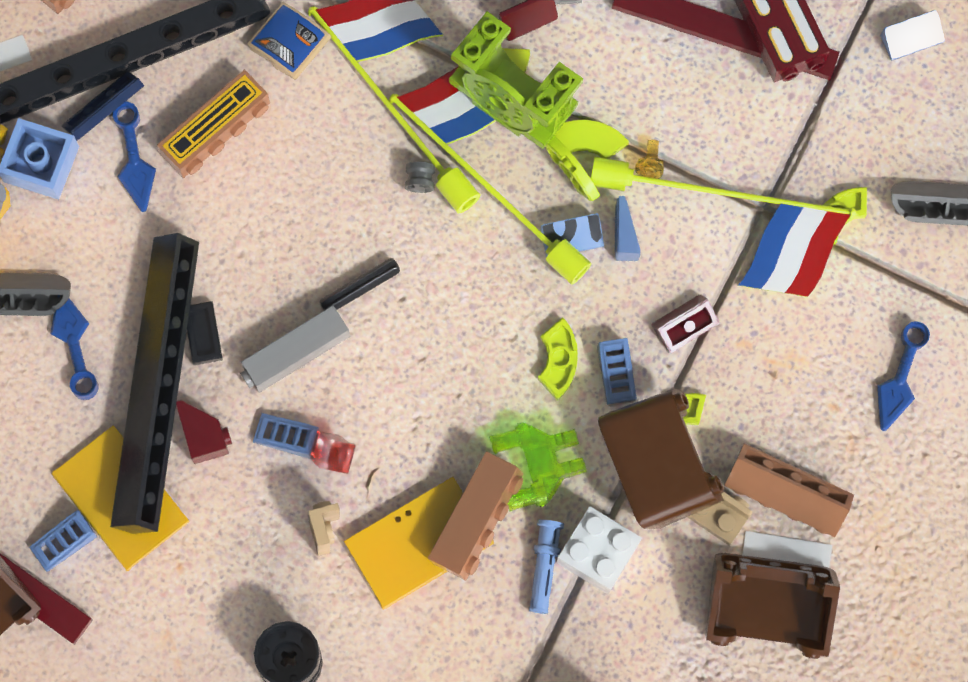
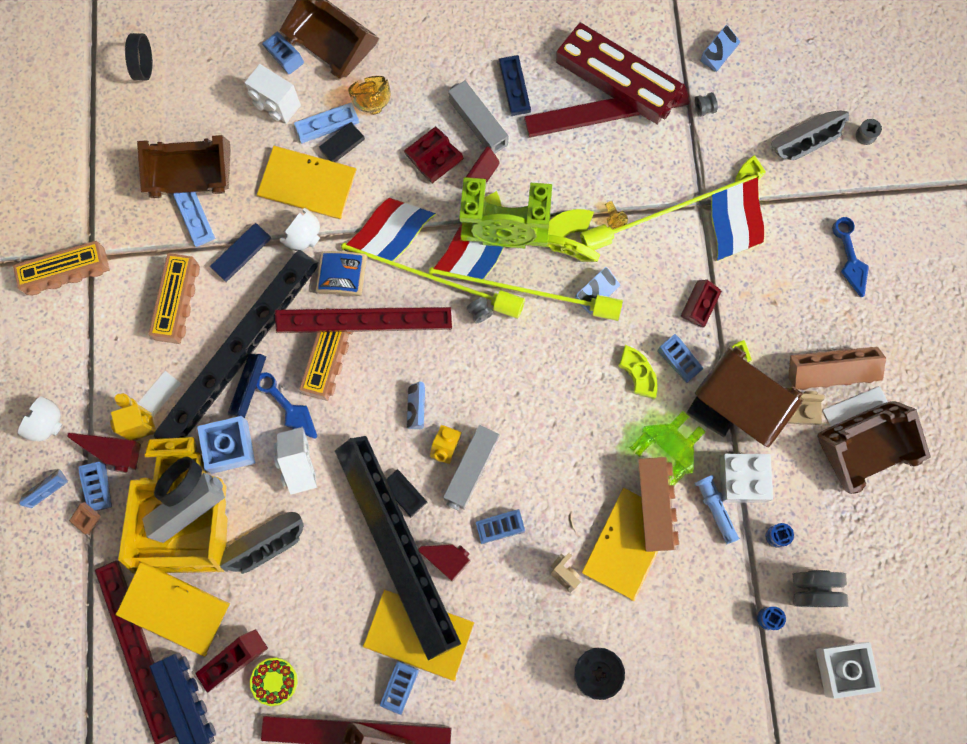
camera: 25 degrees left, 0 degrees up
(69, 327) = (314, 542): blue piece -> none
(102, 222) = (294, 461): none -> white brick
(278, 109) = (363, 319): none -> dark red tile
(278, 244) = (416, 406): none -> light blue slope
(282, 305) = (445, 444): none -> yellow bracket
(332, 452) = (539, 520): clear red brick -> none
(361, 285) = (485, 401): black axle -> none
(593, 641) = (775, 536): none -> blue wheel
(601, 457) = (709, 417): none -> black tile
(626, 241) = (632, 272): medium blue slope -> none
(848, 92) = (706, 104): none -> dark grey wheel

